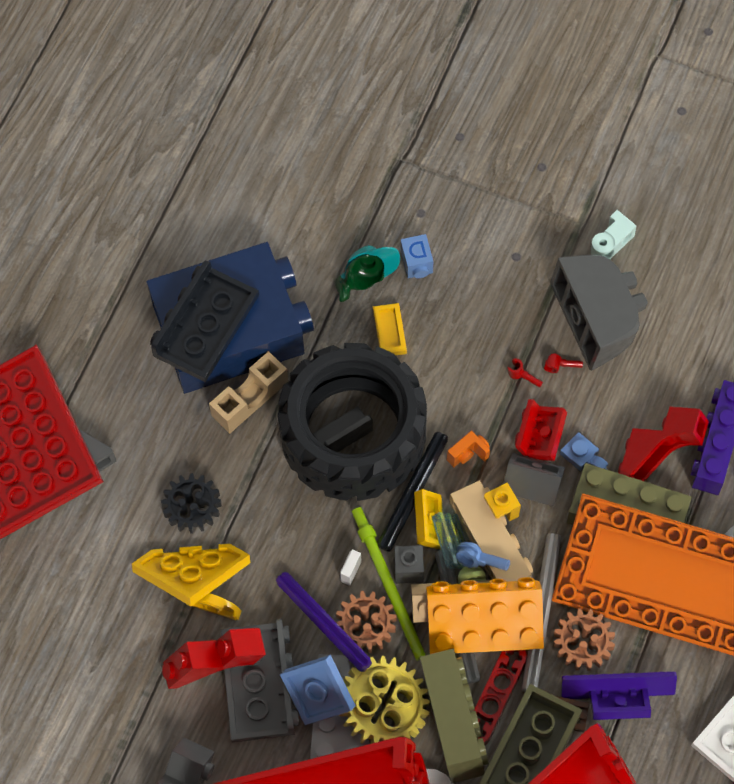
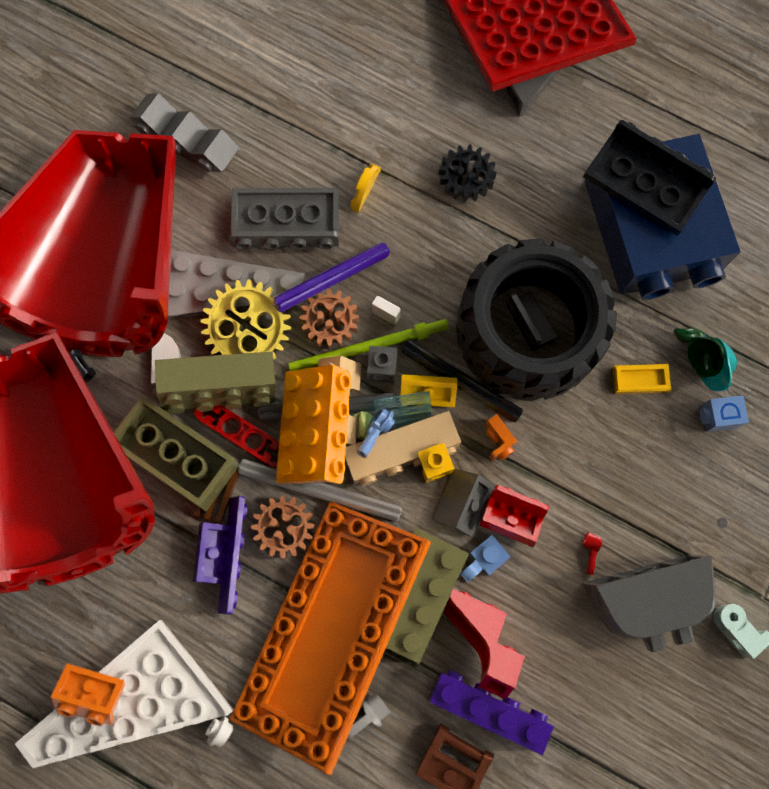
camera: 90 degrees right, 10 degrees up
(191, 571) = (398, 166): yellow plate -> none
(203, 658) = (309, 177): red arch -> none
(236, 405) = (563, 218): tan arch -> none
(317, 690) = (259, 258): medium blue tile -> none
(521, 373) = (583, 508): red hand -> none

